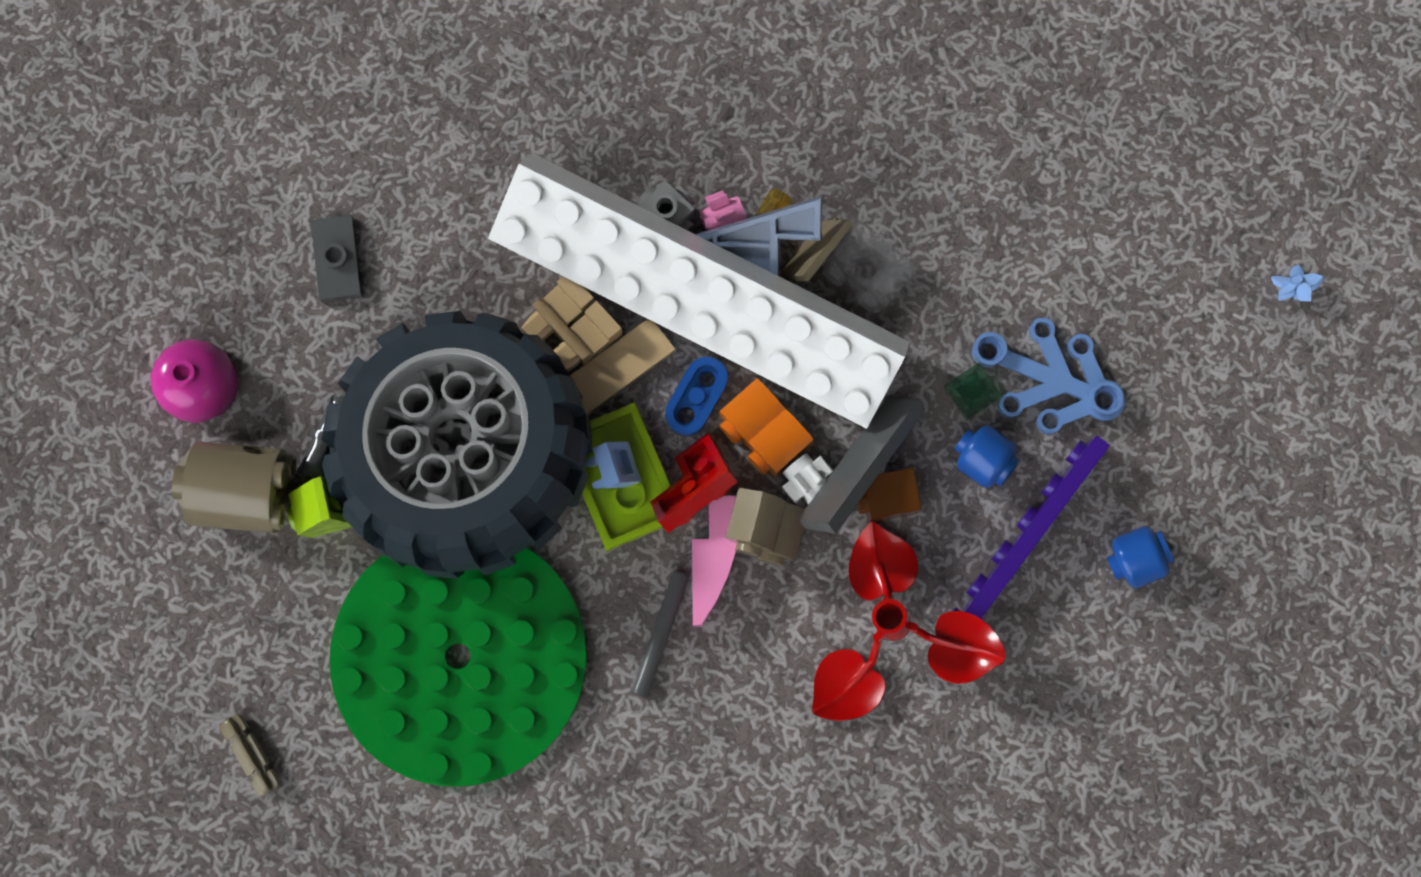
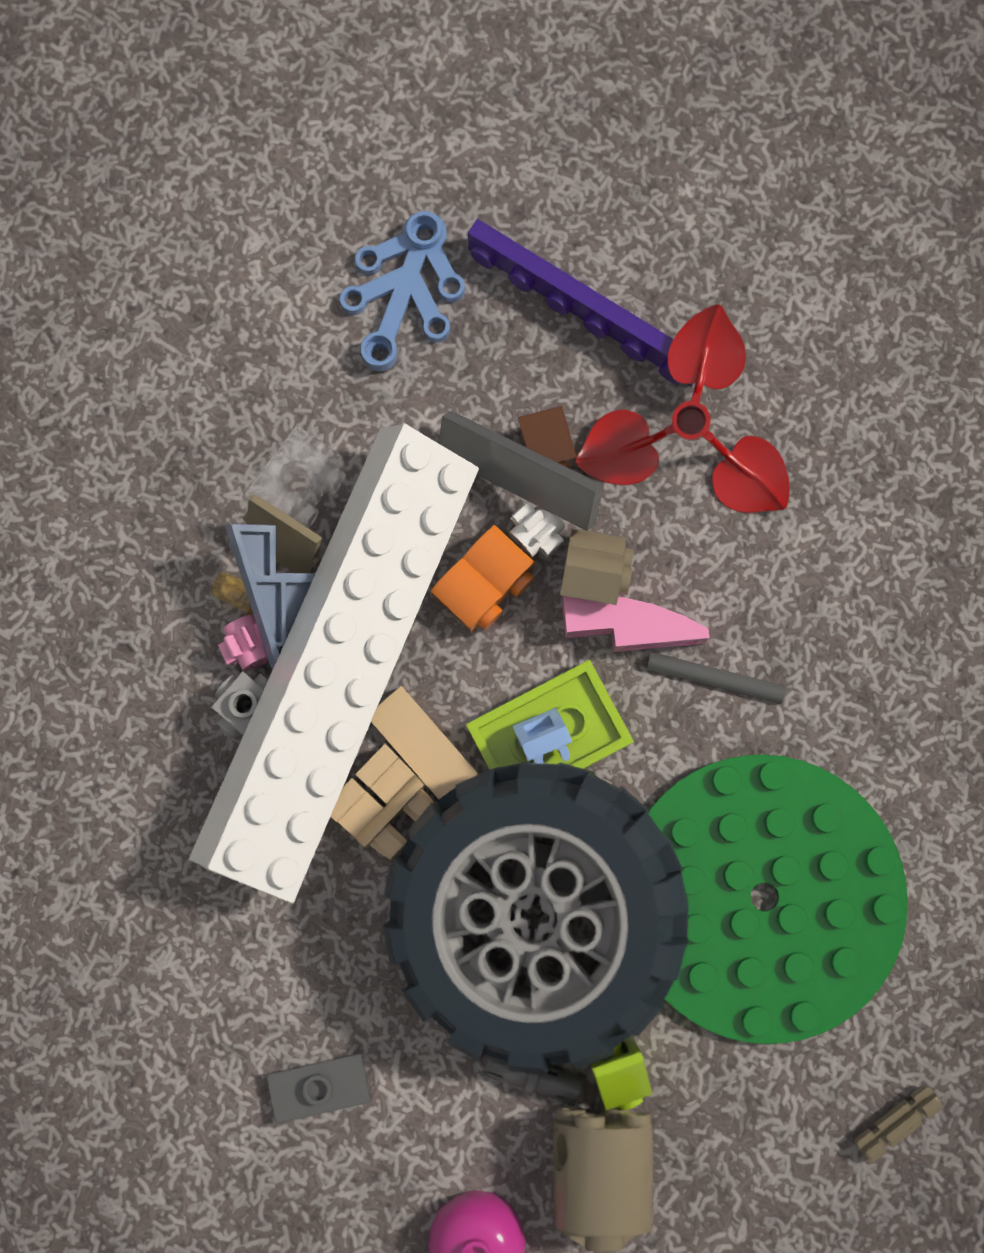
camera: 90 degrees left, 0 degrees up
(694, 396) = (454, 656): blue plate -> none
(704, 480) = (555, 637): red plate -> none
(972, 391) = (425, 367): clear green tile -> none
(986, 456) = (497, 345): blue head -> none
(1140, 557) = (589, 187): blue head -> none
(1298, 285) = (289, 47): light blue plant -> none

